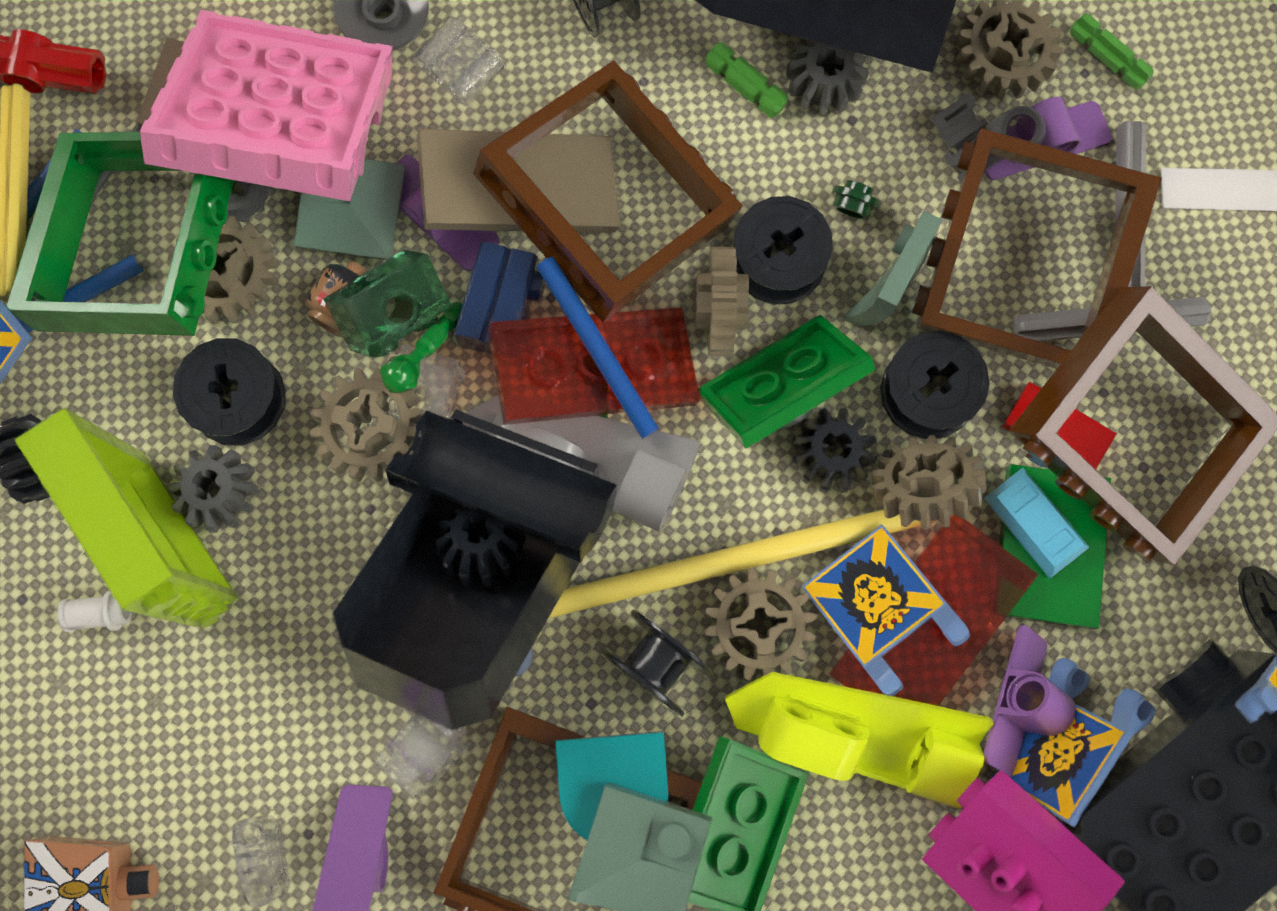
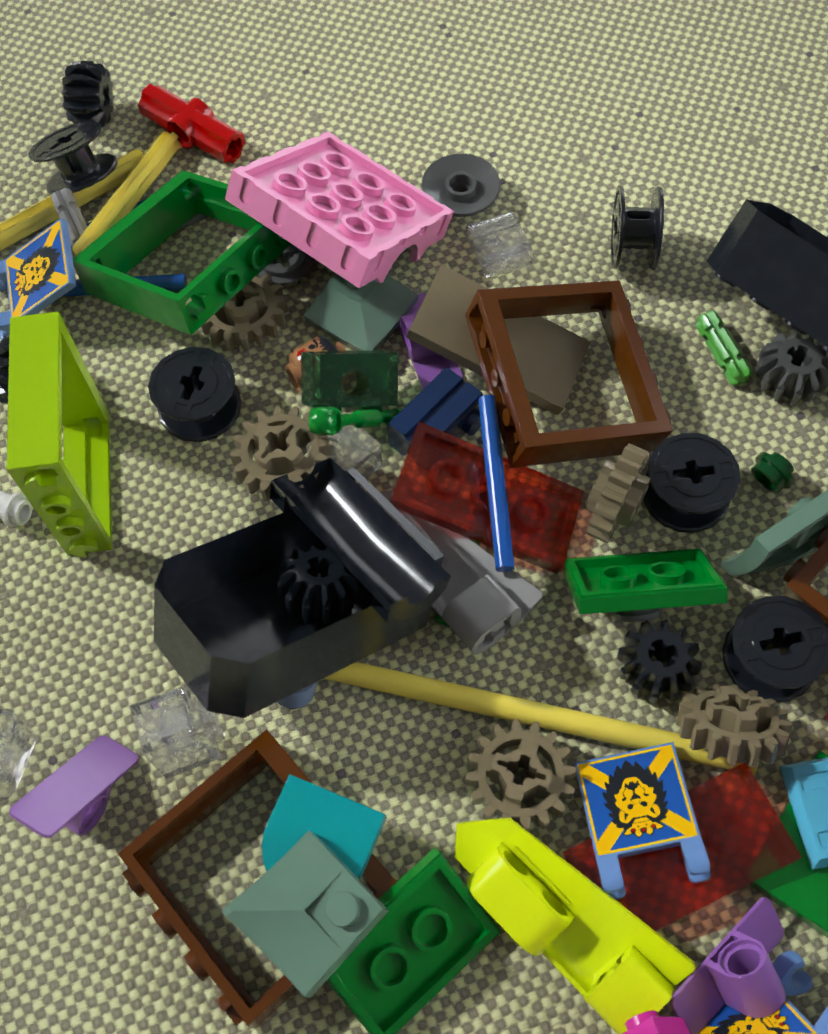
camera: 30 degrees right, 15 degrees down
(200, 504) = (141, 456): dark grey gear -> none
(658, 661) = (414, 757): black piece -> none

